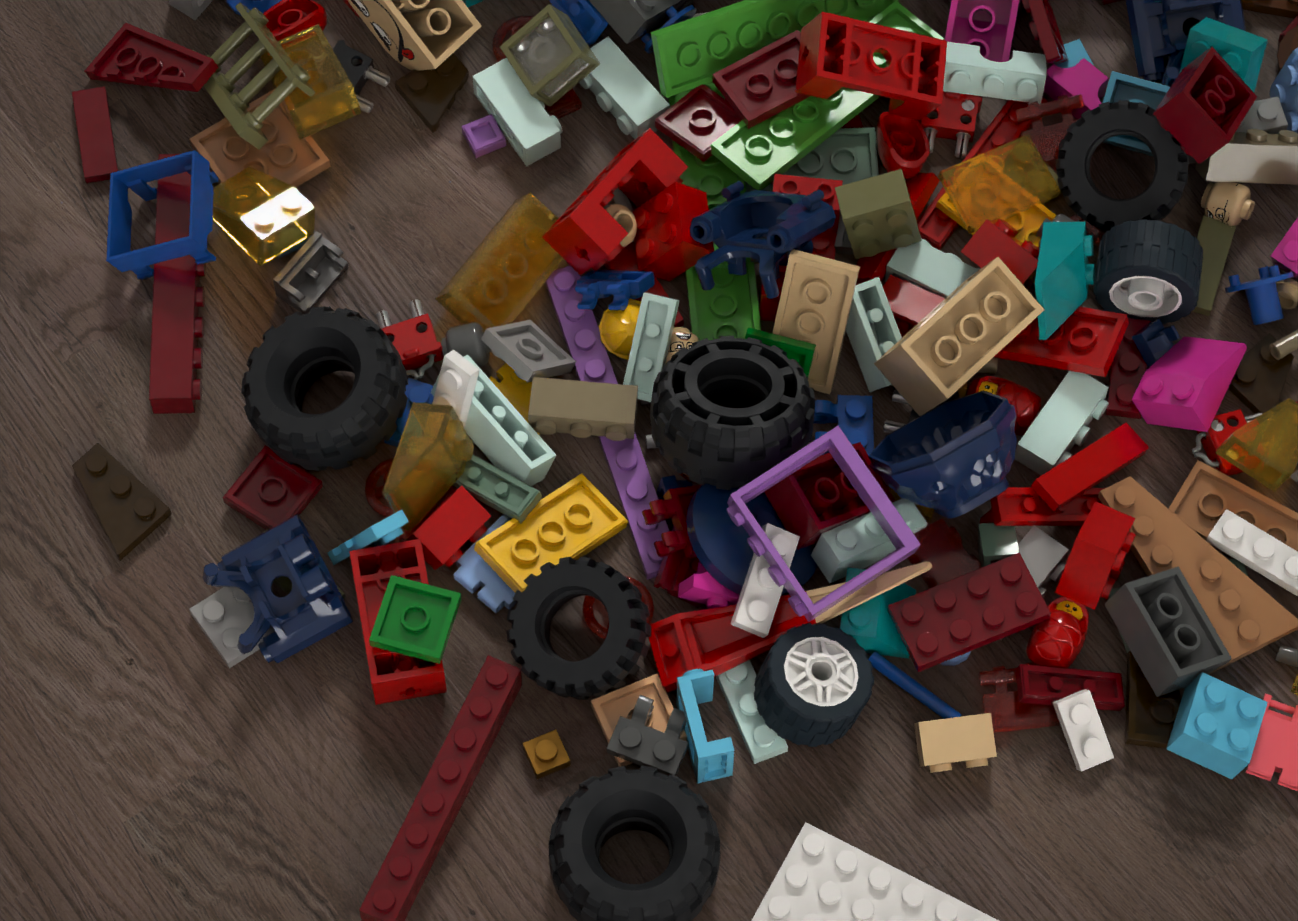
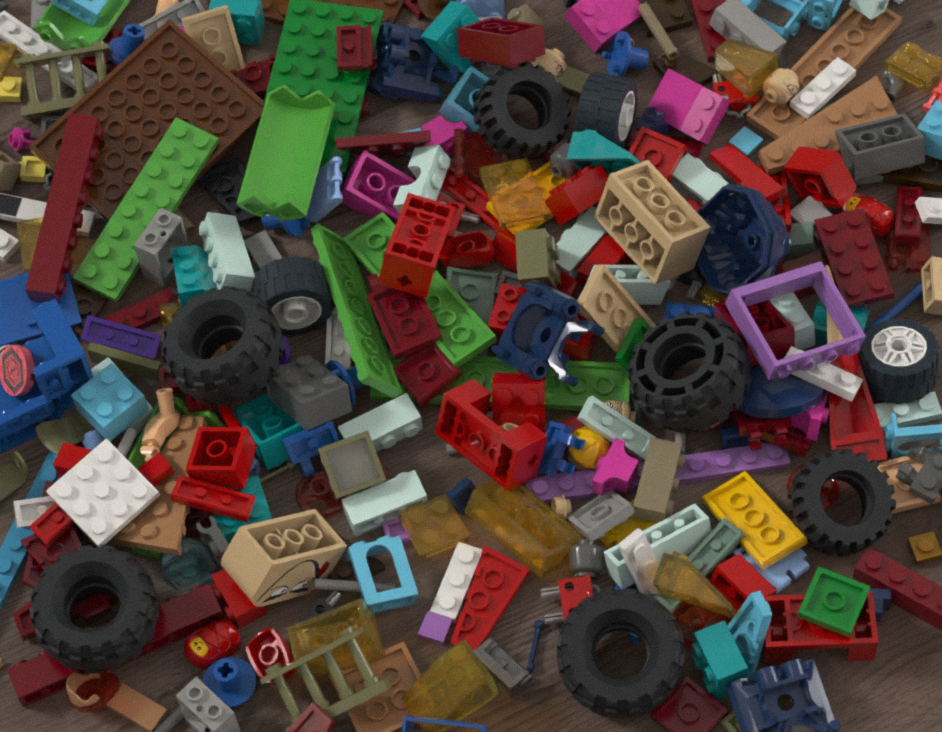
camera: 75 degrees left, 5 degrees down
(337, 507) = (717, 659): none -> teal brick
(357, 196) = (435, 628): none -> medium lavender tile
(373, 310) = (538, 625): none -> dark blue hinge
(397, 97) = (350, 586): none -> light grey bar
(409, 249) = (491, 592): none -> red wing
(423, 211) = (457, 581): none -> white plate
(443, 127) = (389, 599): none -> medium azure panel
(450, 694) = (882, 601): none -> dark blue tile
(493, 171) = (433, 526): none -> clear yellow plate
(541, 310) = (561, 506): none -> tan plate
(542, 191) = (461, 494): none -> dark blue tile
(593, 354) = (615, 470): none -> dark pink brick
(1157, 469) = (746, 141): none -> medium azure tile
(1246, 492) = (781, 86): none -> tan head

